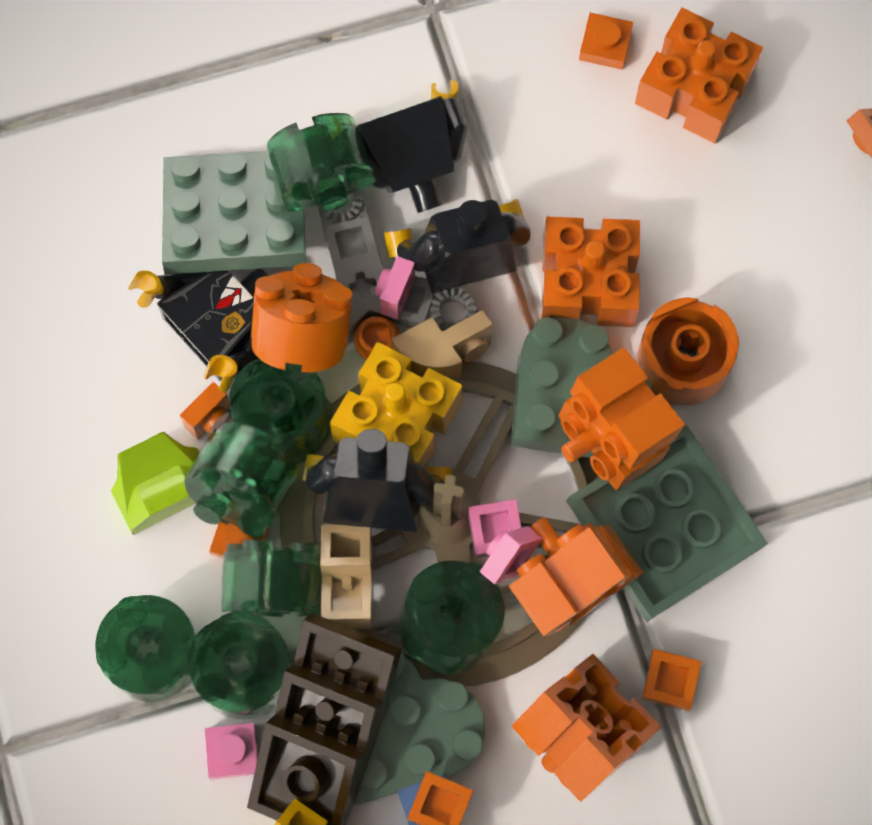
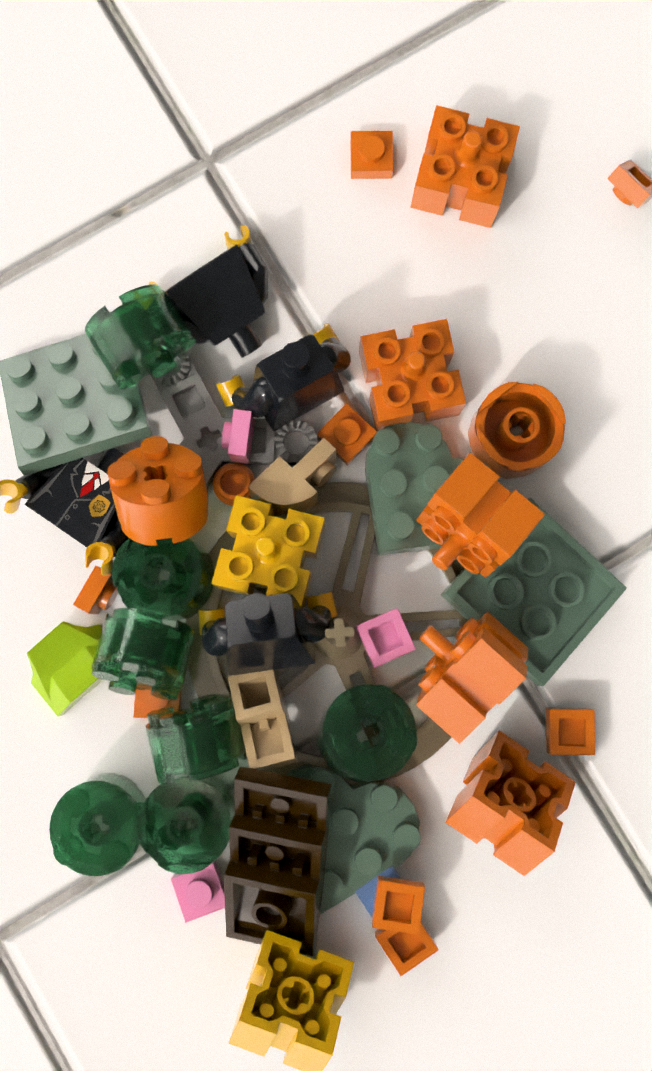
camera: 15 degrees left, 10 degrees up
(508, 553) = (406, 670): bright pink plate -> none
(510, 316) = (347, 433): none -> orange plate

